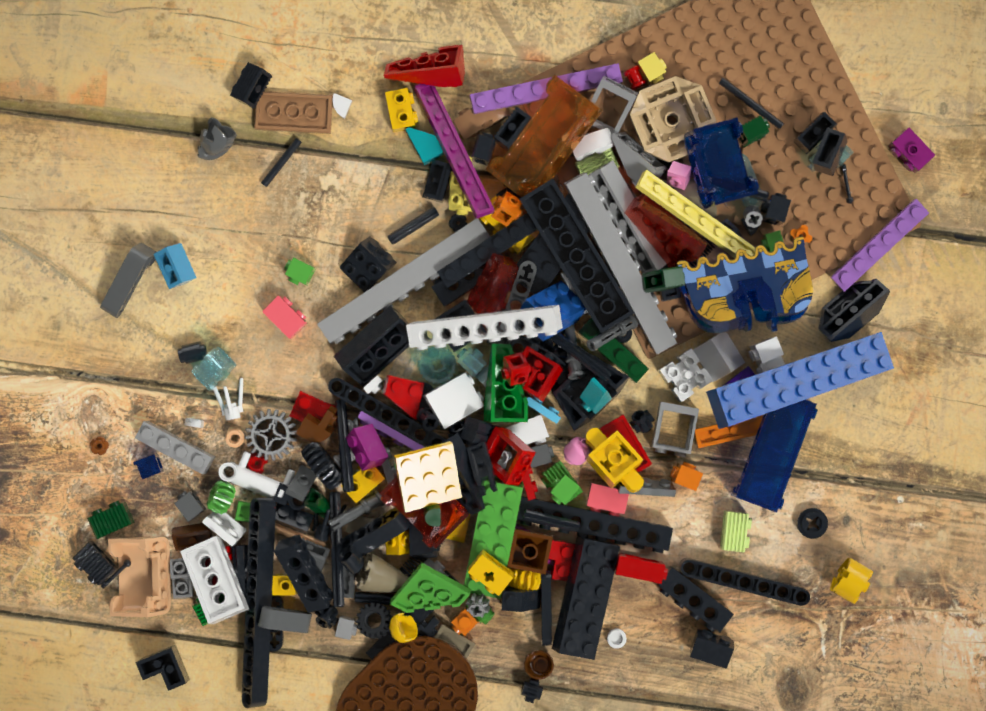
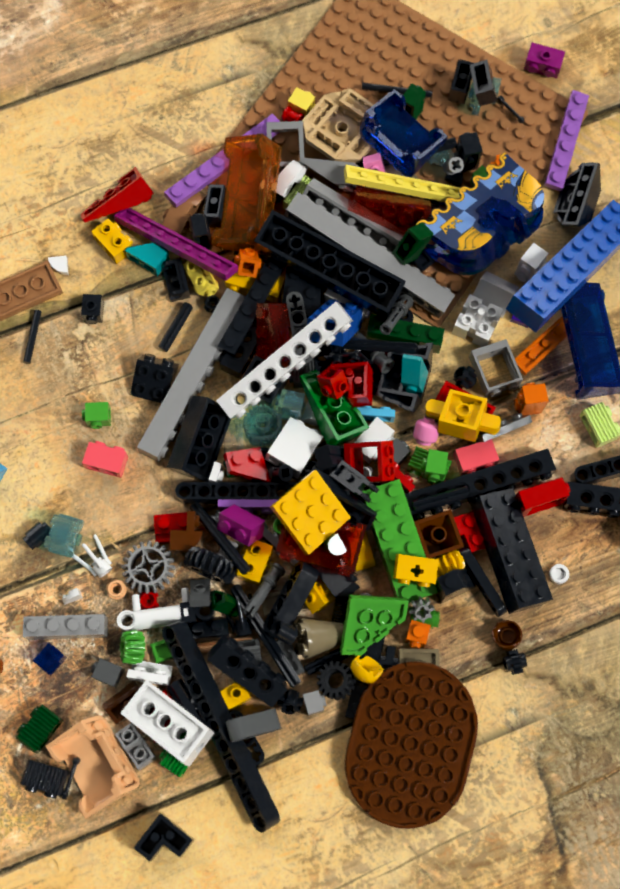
camera: 35 degrees left, 15 degrees down
(347, 167) = (92, 308): none -> black brick

